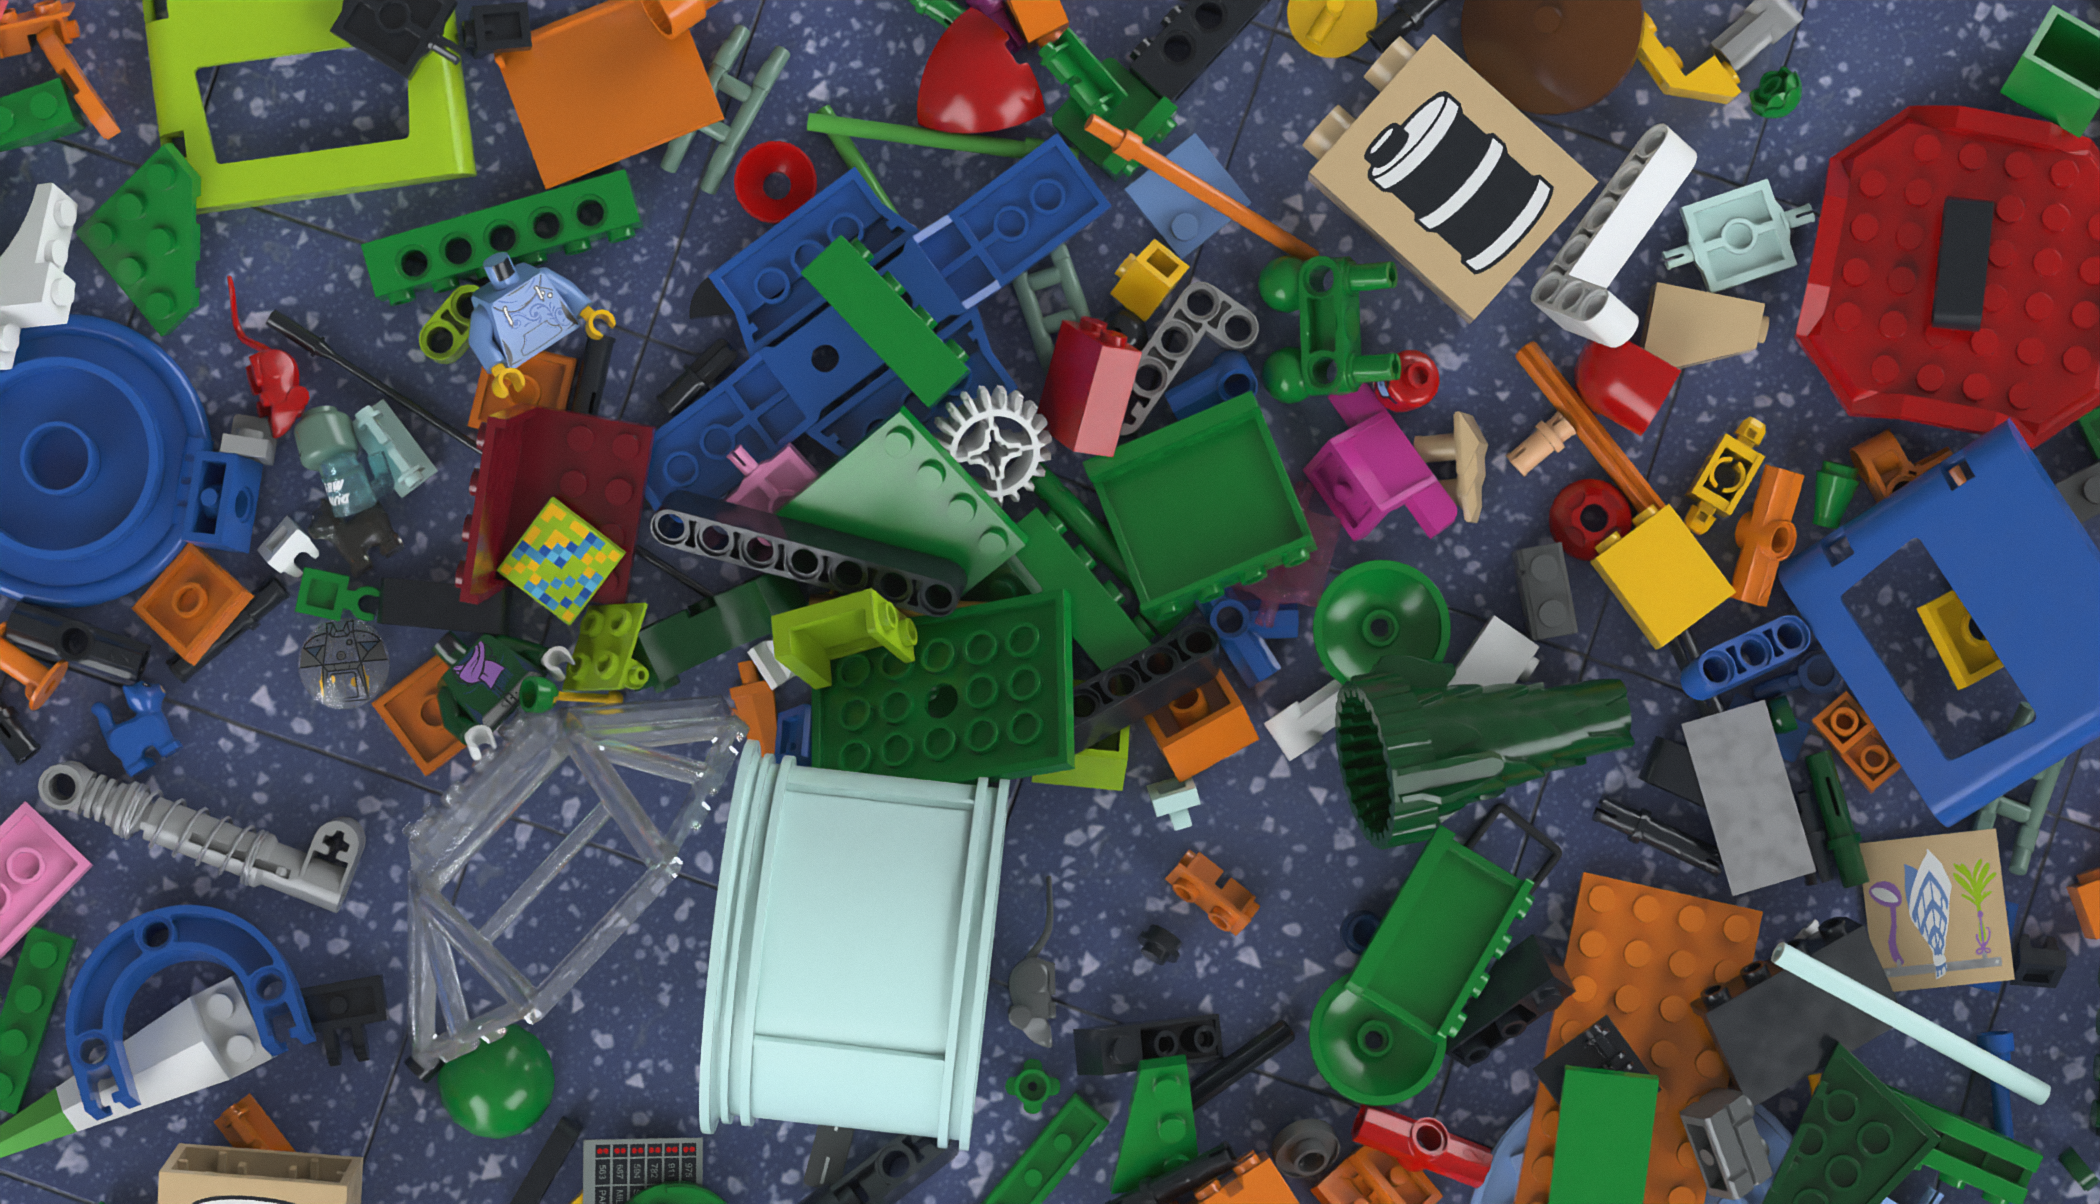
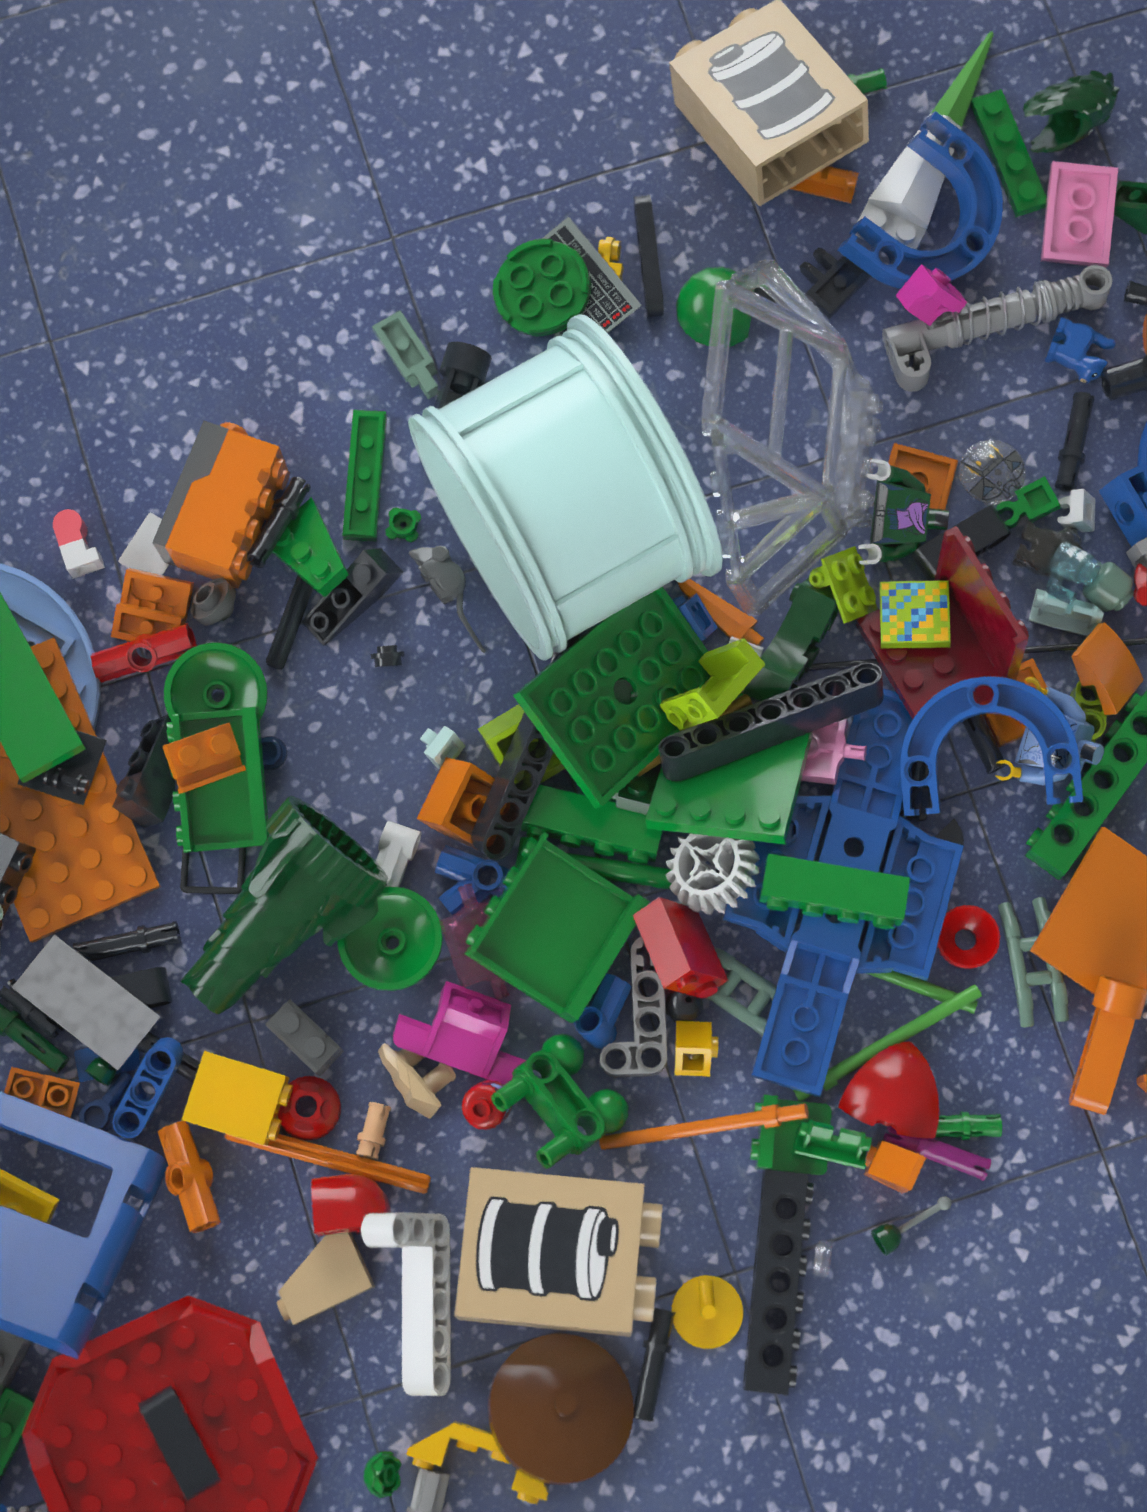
camera: 150 degrees right, 10 degrees down
(192, 602) = (1106, 438): orange tile -> none
(259, 903) = (930, 295): none -> dark pink brick
(402, 349) = (1109, 666): none -> orange slope
(541, 694) = (864, 527): green hinge -> none
(542, 379) = (957, 704): none -> blue piece
(1174, 213) = (707, 1102): medium blue plate -> none
(1226, 907) = (391, 709): orange hinge -> none
(1442, 966) = (204, 757): none -> orange plate
(1496, 656) = (306, 972): white slope -> none
(1738, 236) = (341, 1360): light aqua plate -> none
(1749, 434) = (239, 1158): yellow piece -> none
(1833, 492) = (165, 1240): green cone -> none
(1884, 464) = (141, 1279): orange piece -> none

